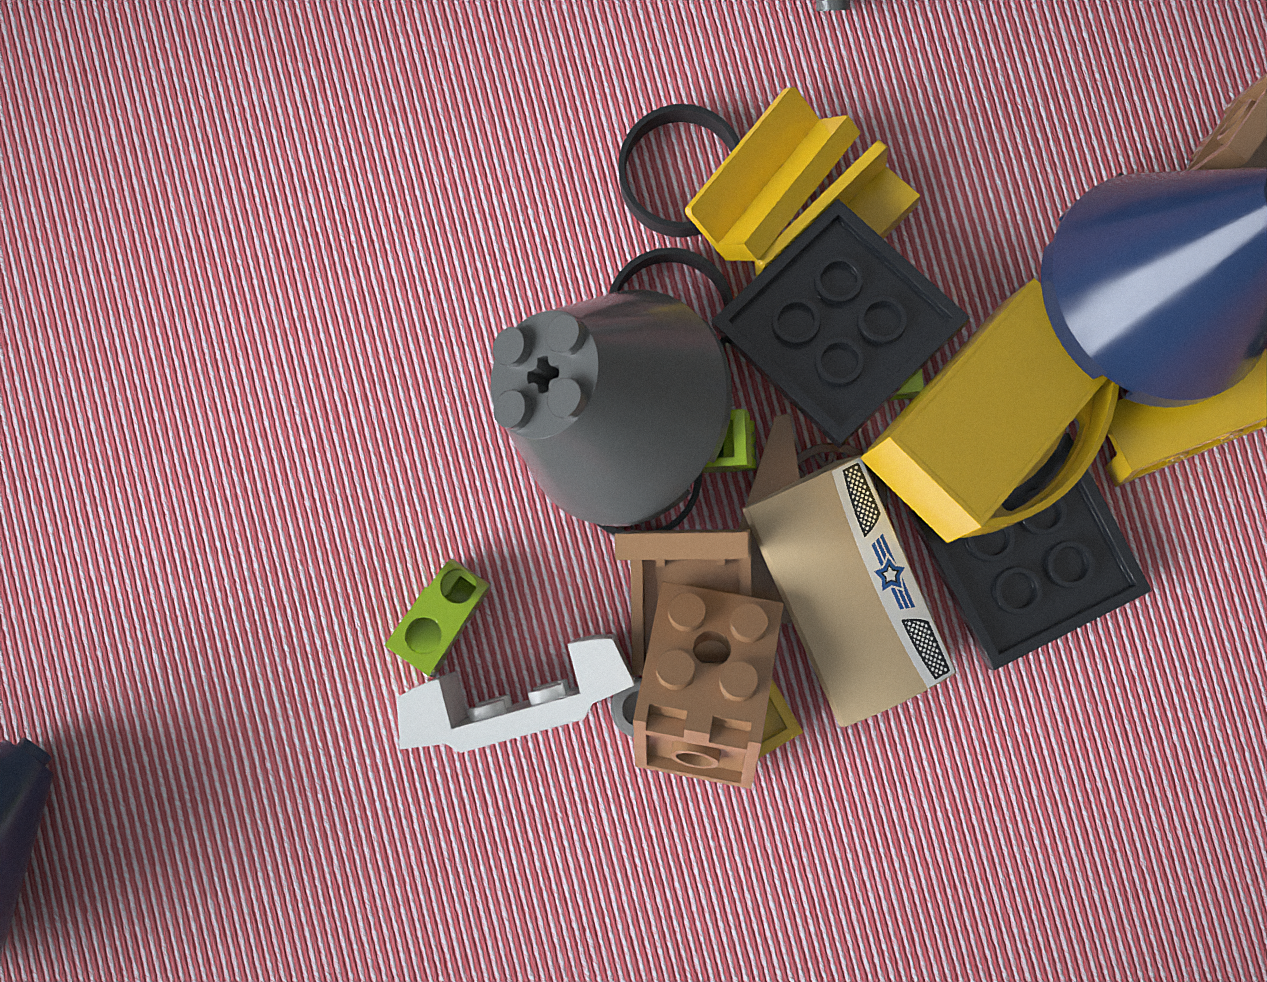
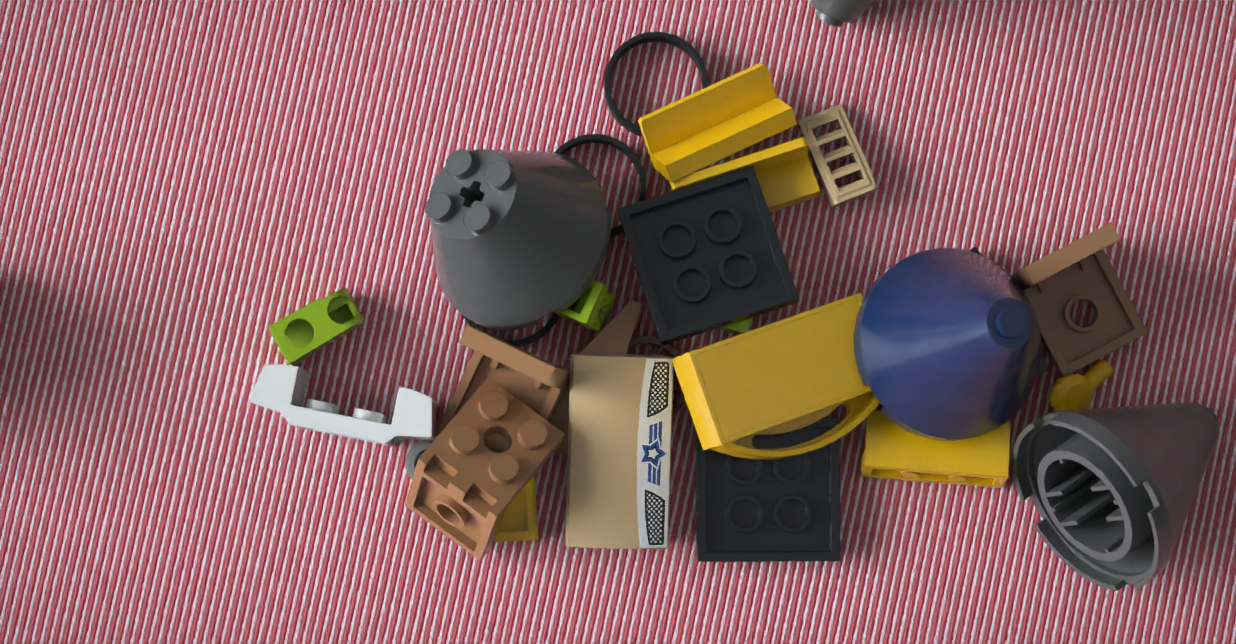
camera: 20 degrees right, 0 degrees up
(939, 142) = (852, 191): none -> tan slope

